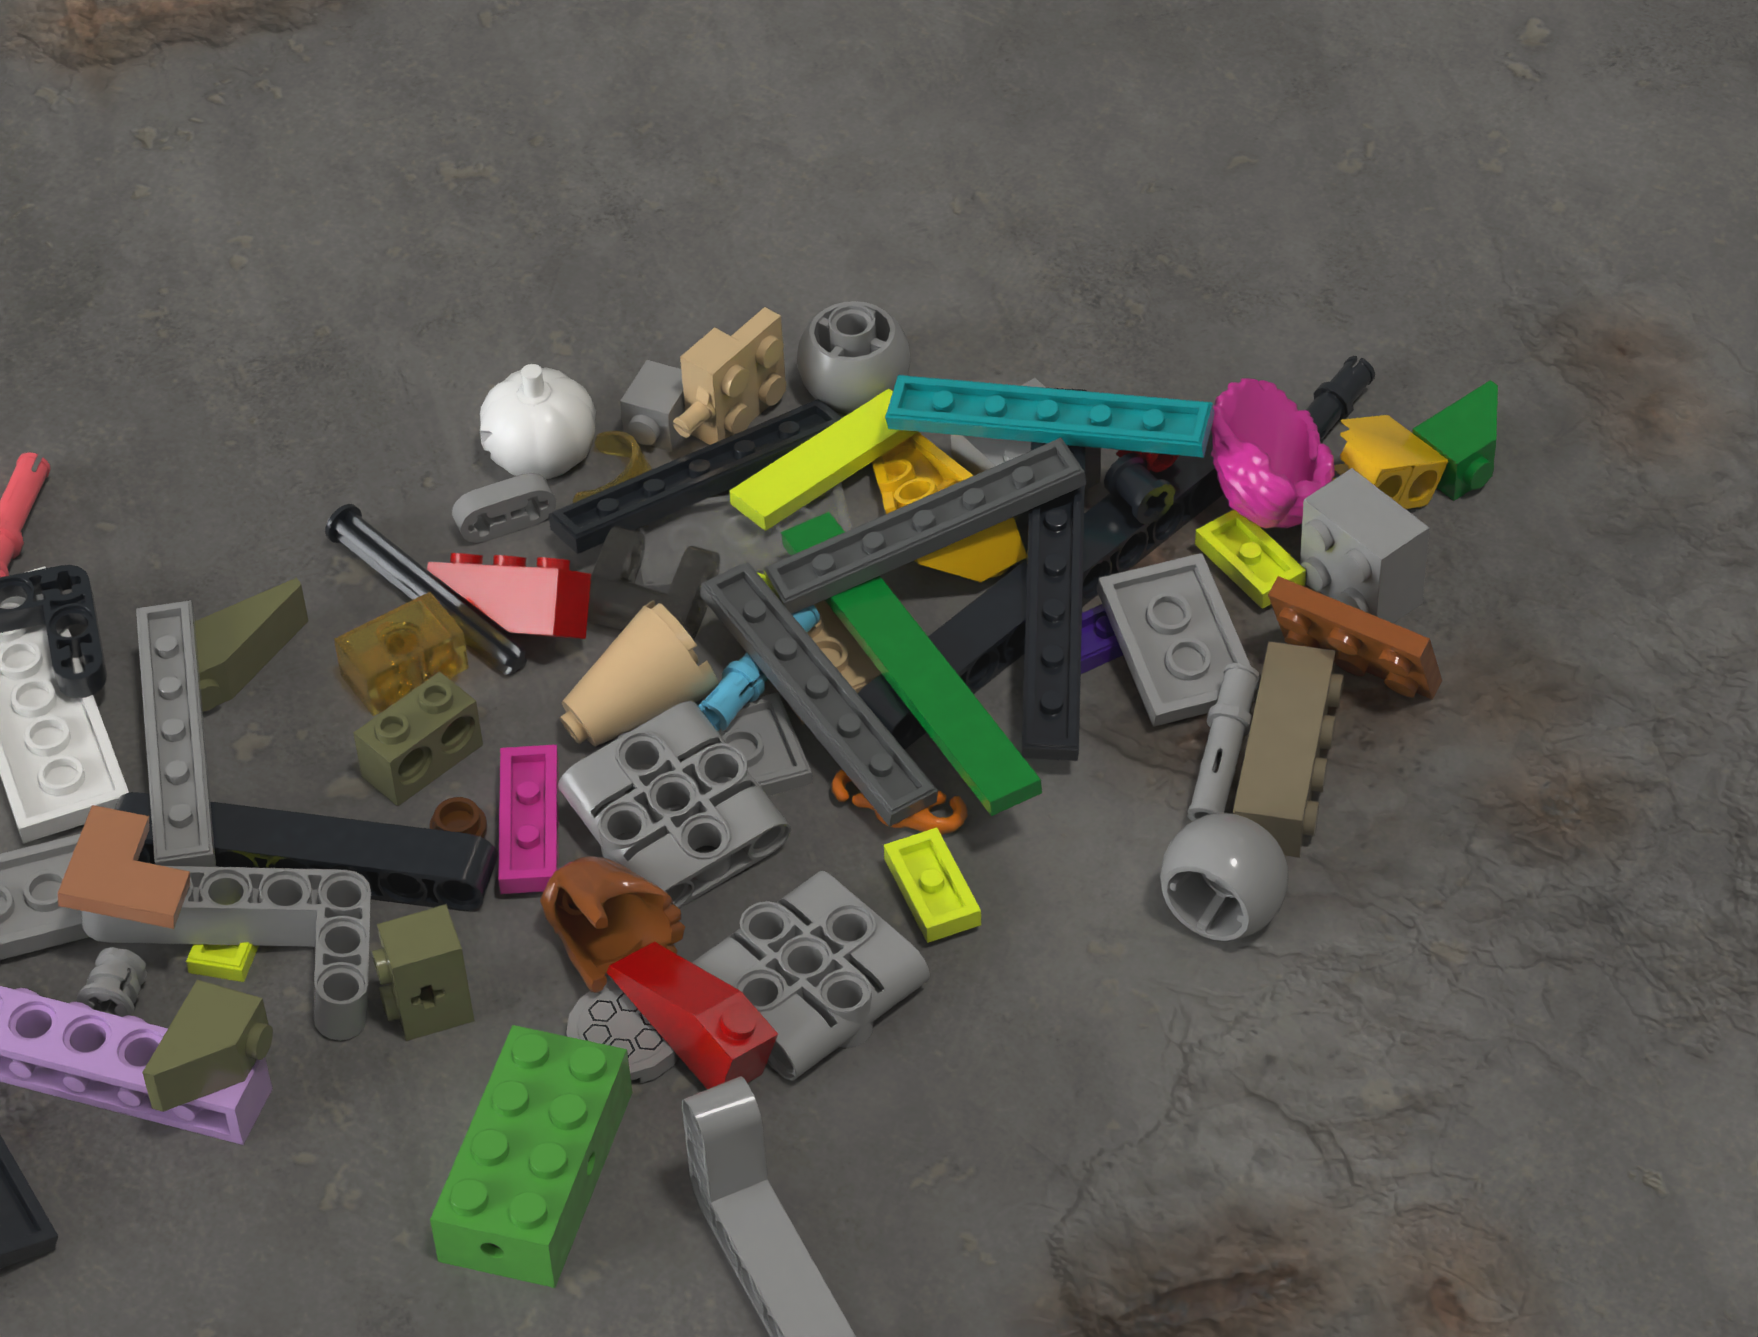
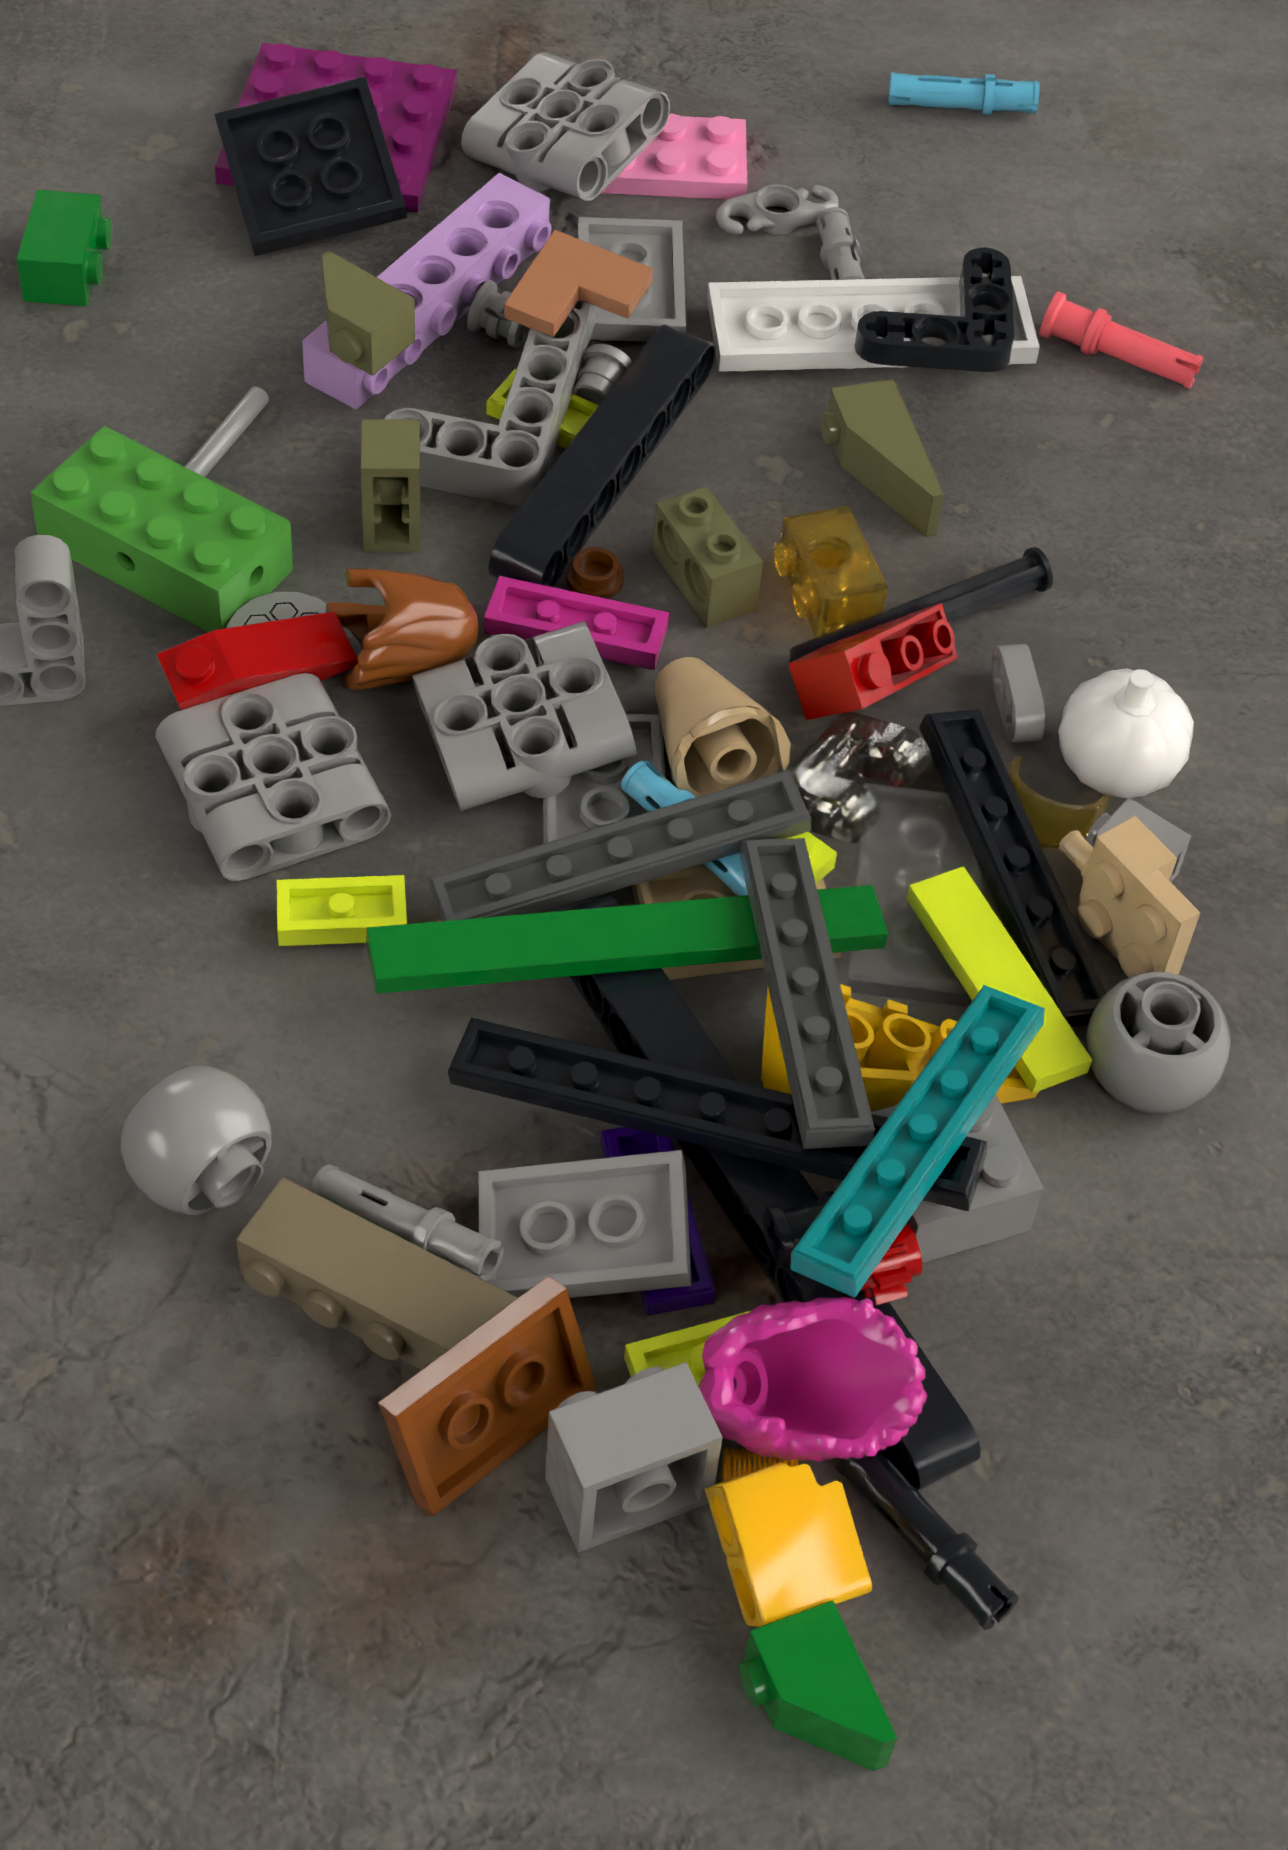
camera: 100 degrees right, 5 degrees up
(175, 736) = (757, 370): light grey tile -> none
(364, 1174) = (228, 431): none -> light grey piece

